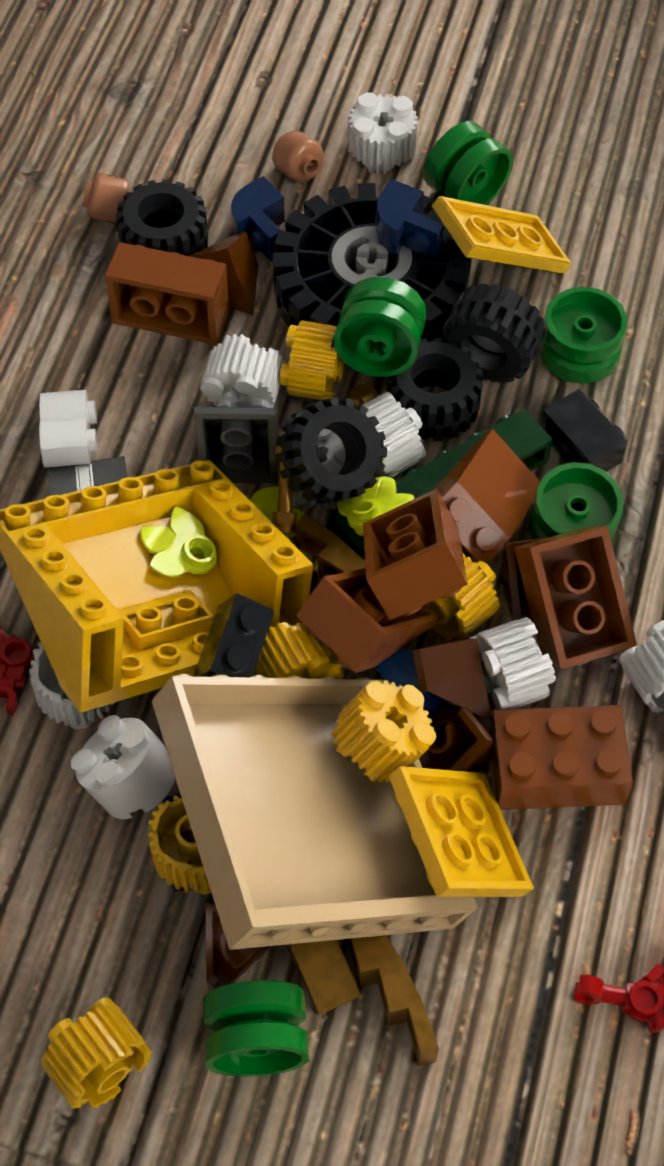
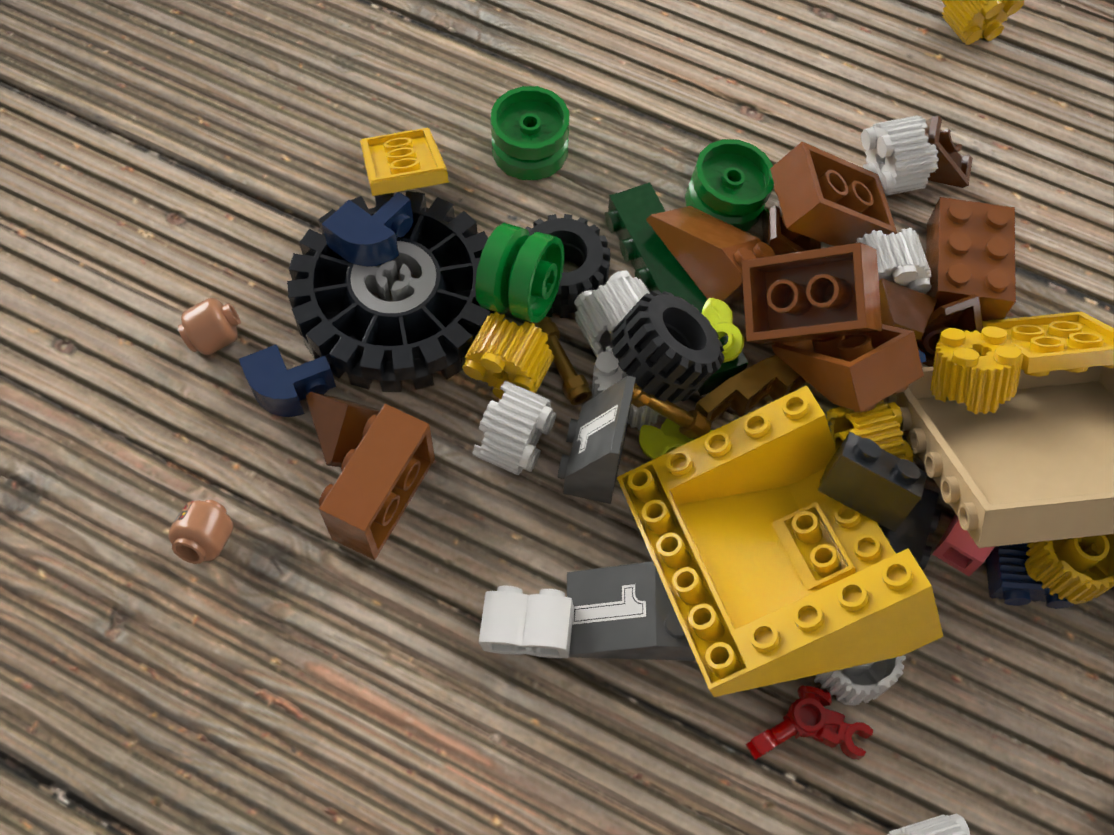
camera: 80 degrees left, 5 degrees up
(124, 767) = (1000, 616): white brick -> none
(163, 205) = (252, 453): black tyre -> none
(177, 543) = (729, 519): neon yellow plate -> none
(382, 131) = (207, 239): white brick -> none
(468, 164) = (300, 170): green wheel -> none
(497, 330) = (521, 189): black tyre -> none
(583, 432) = (637, 162): black brick -> none

